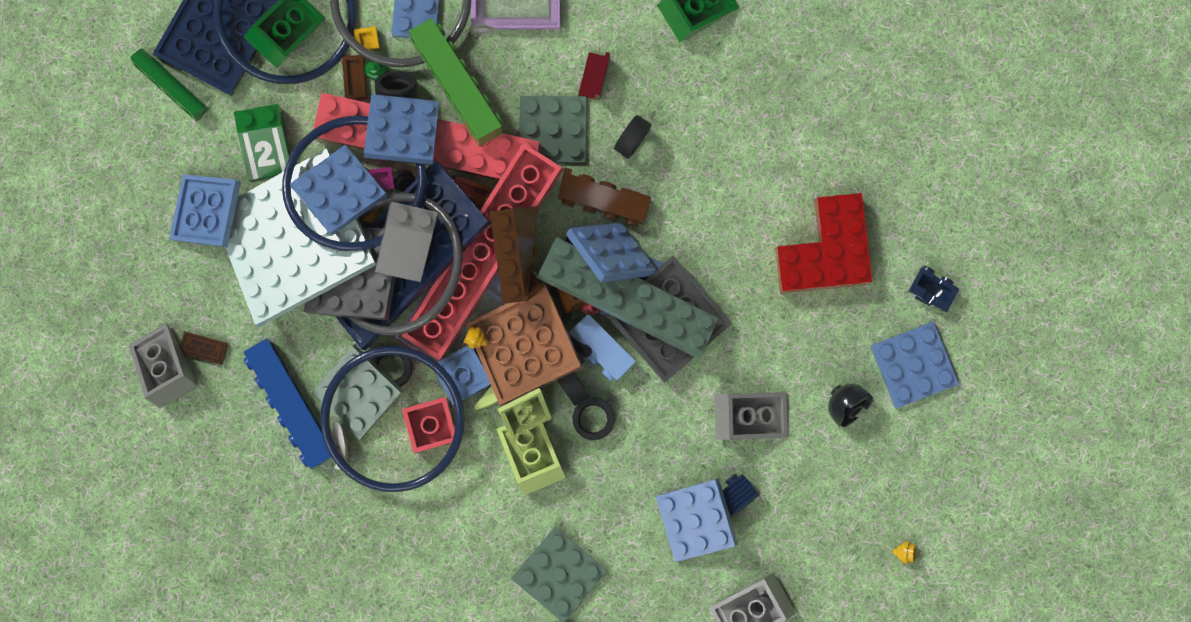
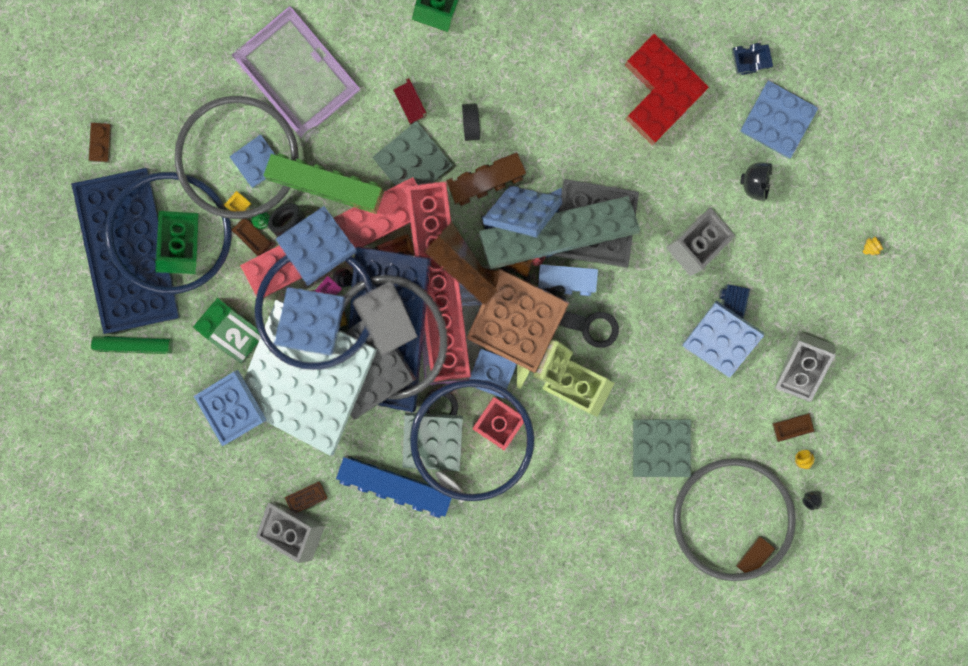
camera: 50 degrees left, 5 degrees up
(475, 338) = (481, 342): yellow plate -> none

